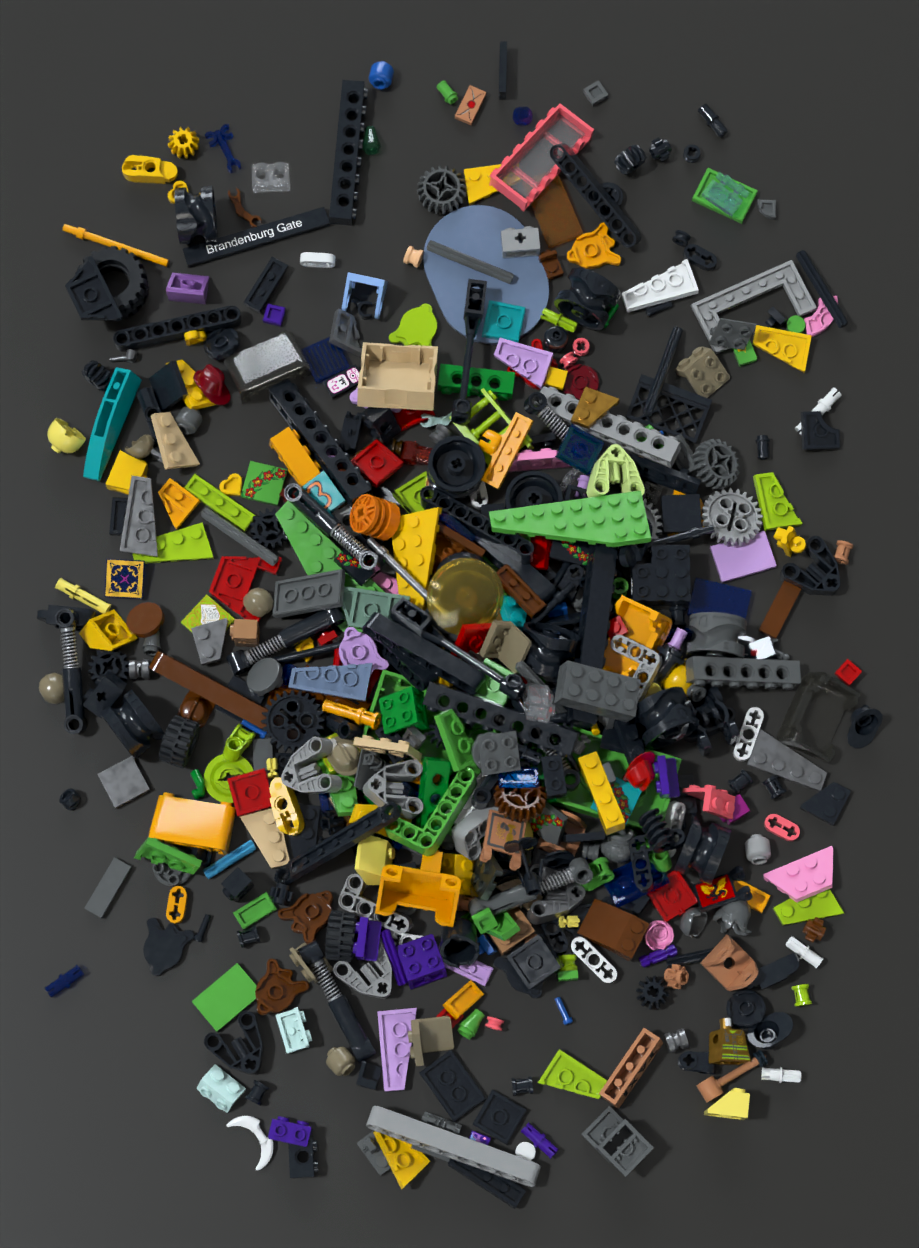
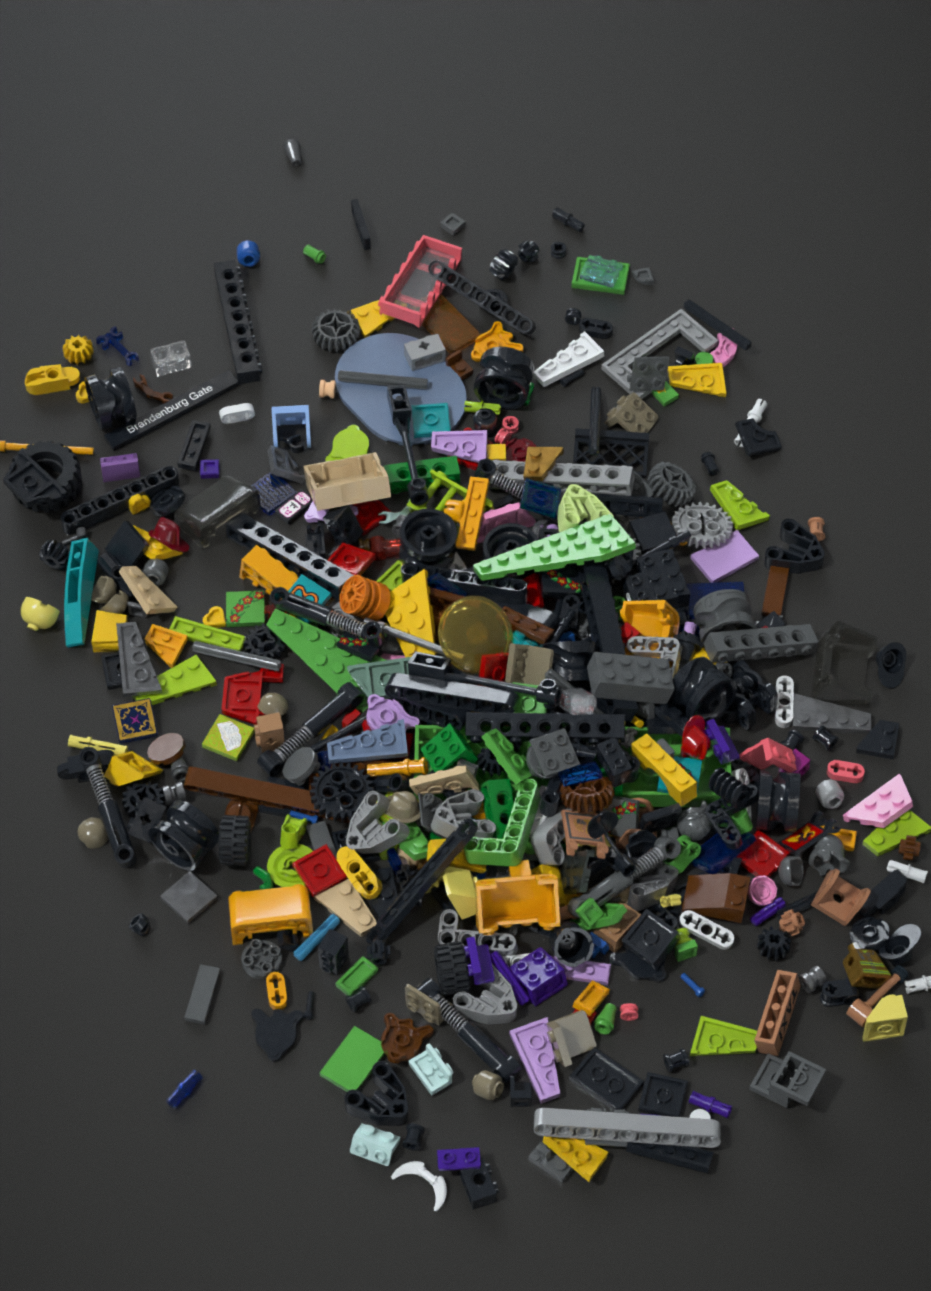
camera: 15 degrees left, 20 degrees down
(134, 427) = (104, 590): none -> dark tan hair
(162, 853) = (250, 940): bright green wing -> none
(210, 640) = (236, 750): flat silver wing -> none
(272, 765) = (332, 841): light yellow piece -> none
(309, 593) = (321, 682): dark grey tile -> none
(309, 914) = (411, 963): reddish brown tile -> none
(371, 142) = (256, 308): clear green cone -> none
(470, 105) = (339, 259): nougat tile -> none
(522, 116) = (391, 255): clear blue wheel -> none
(789, 541) = (763, 529): yellow hips -> none
(801, 995) = (918, 907): lime bush -> none
(848, 672) = (860, 622): red plate -> none

